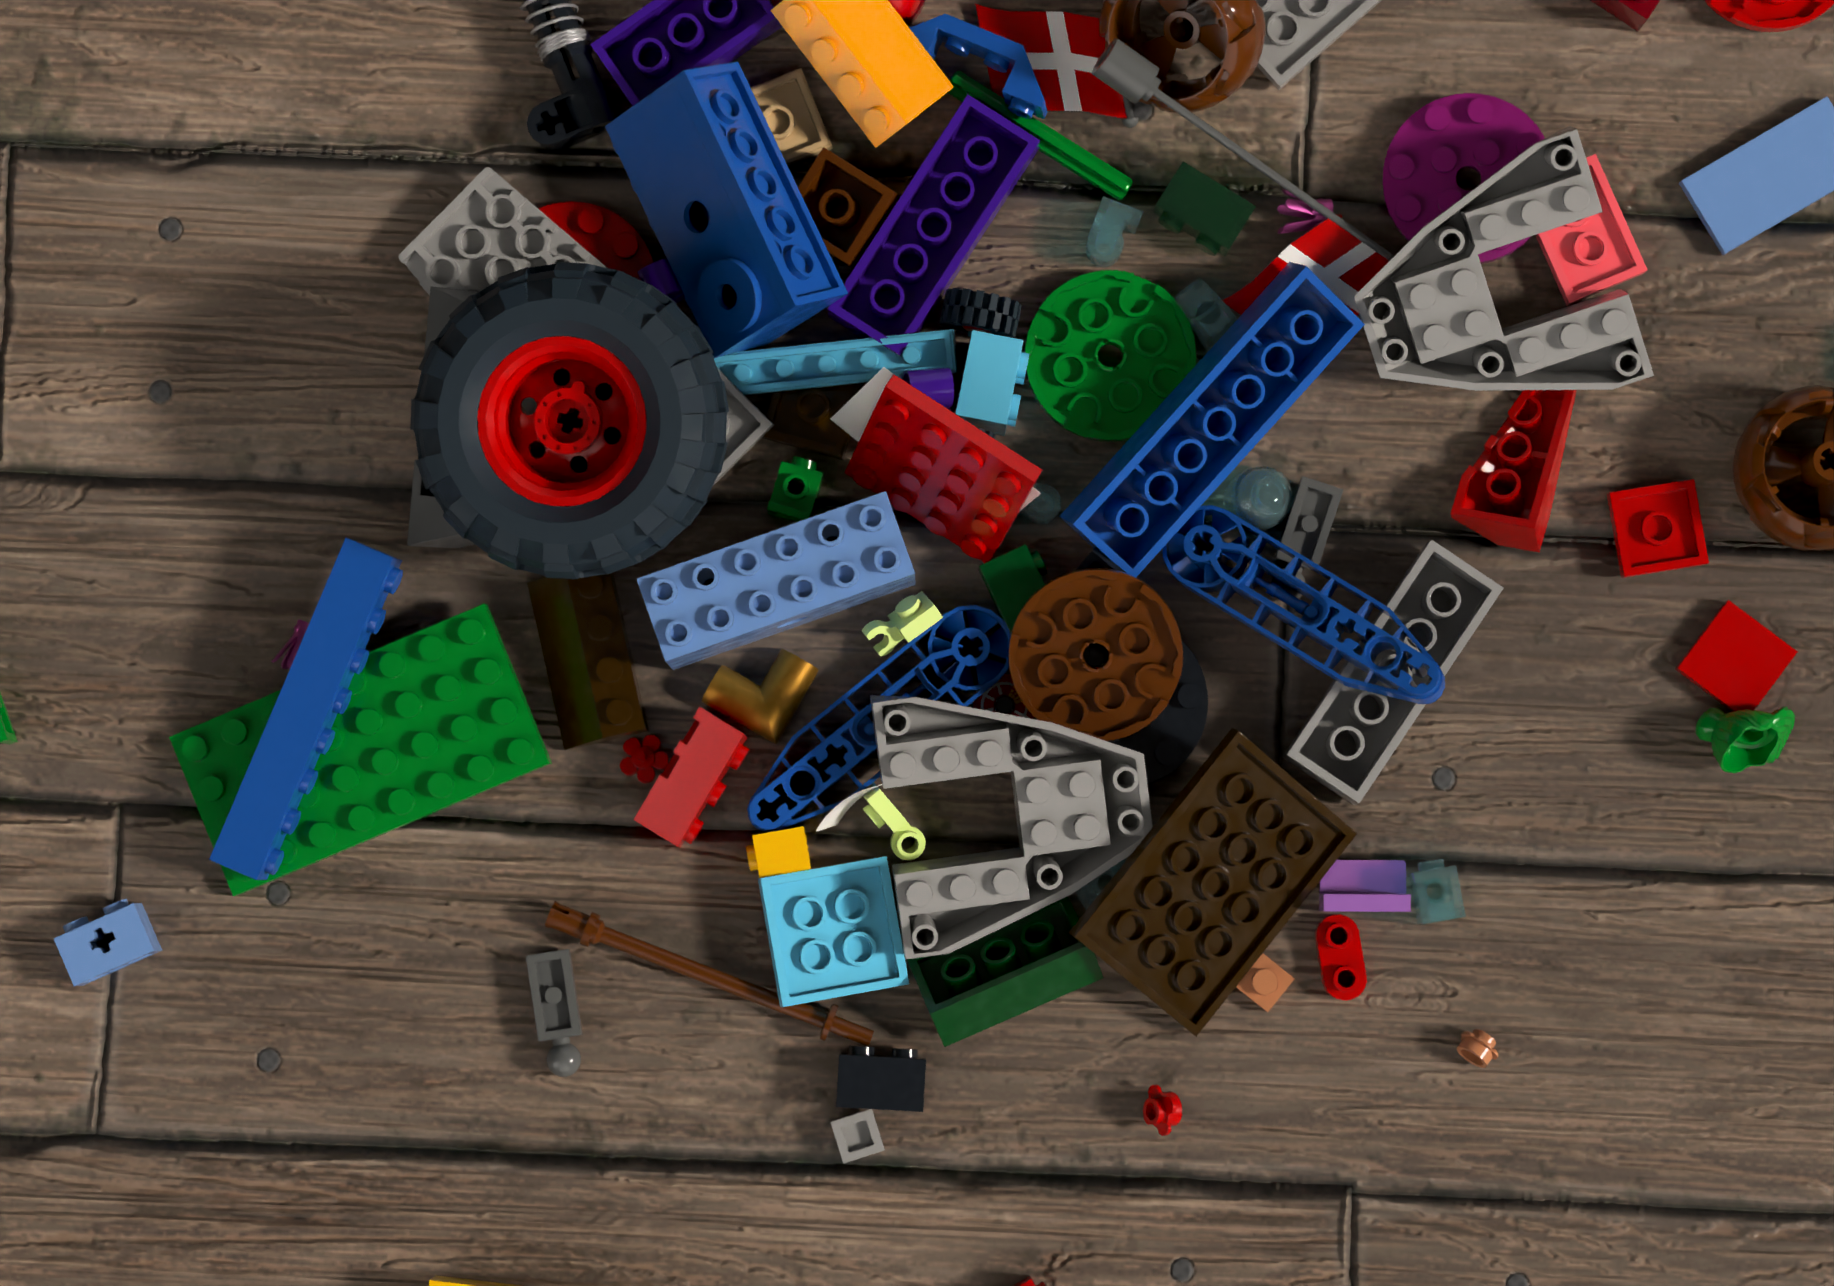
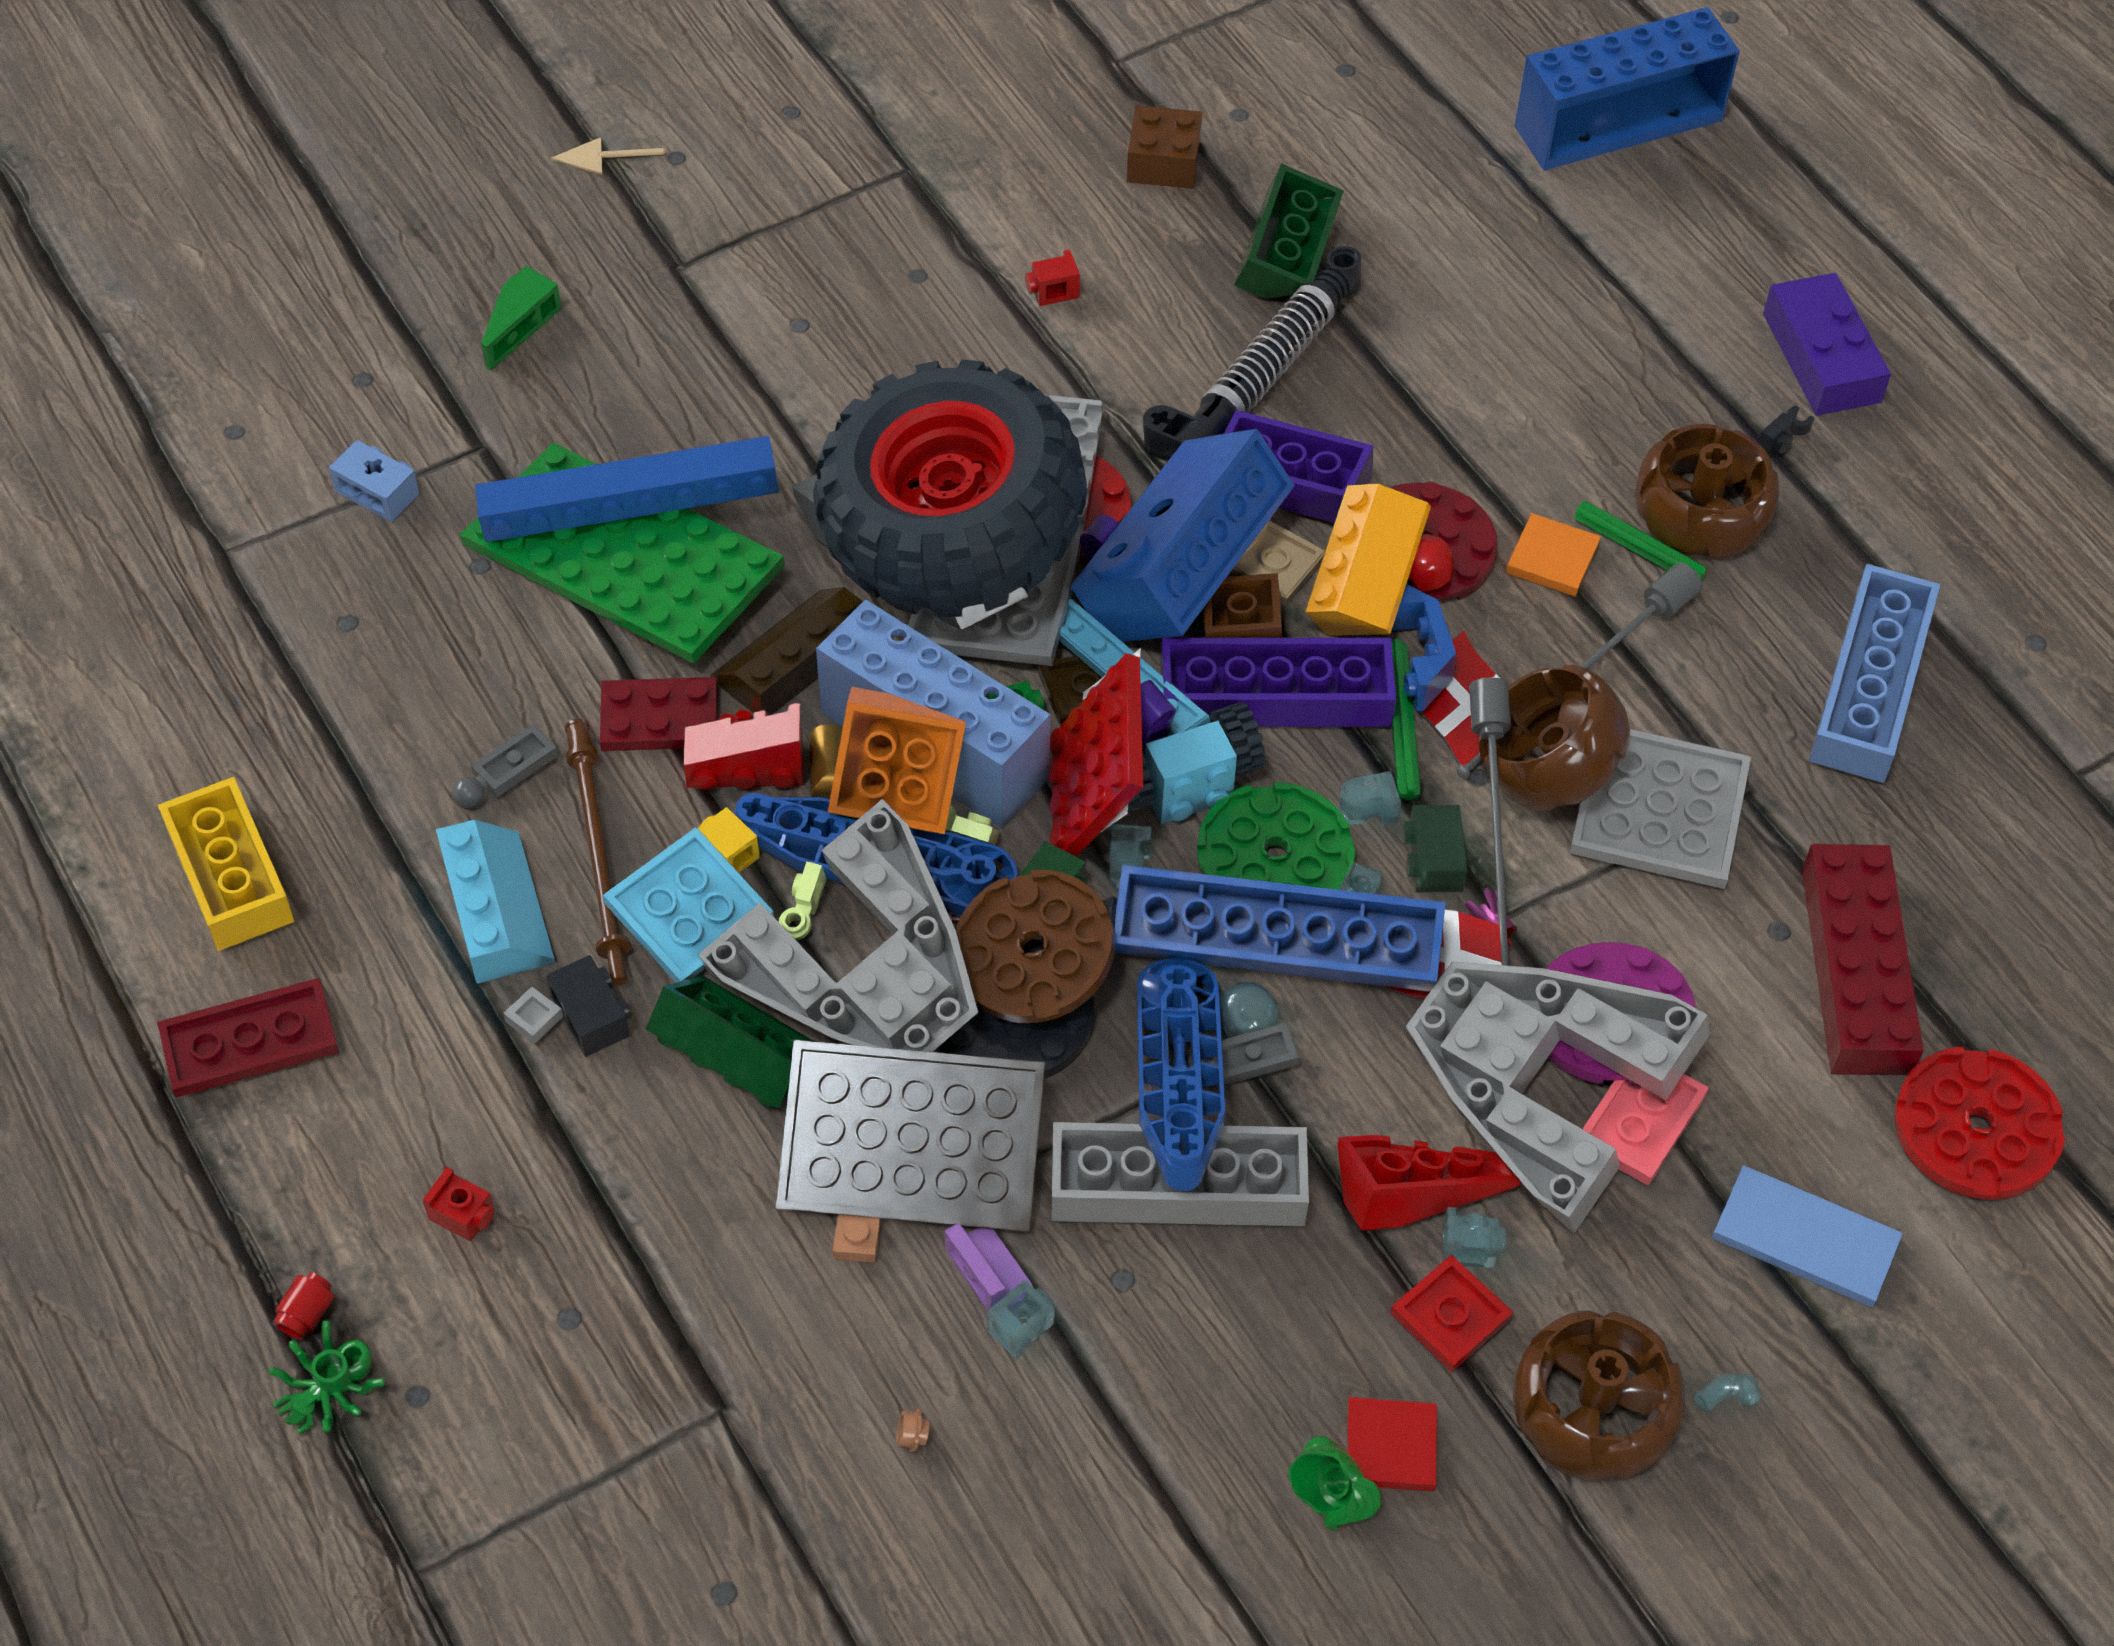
camera: 55 degrees right, 30 degrees down
(278, 99) = (1054, 279): none -> red brick
(580, 826) = (654, 711): none -> dark red plate
(706, 1101) = (494, 899): none -> medium azure slope
(825, 660) = (896, 755): none -> orange slope
(836, 814) = (792, 858): white sticker -> none
(1162, 1109) = (696, 1216): red plate -> none
(1339, 957) = (919, 1281): red plate -> none
(1604, 463) = (1473, 1239): none -> clear light blue brick

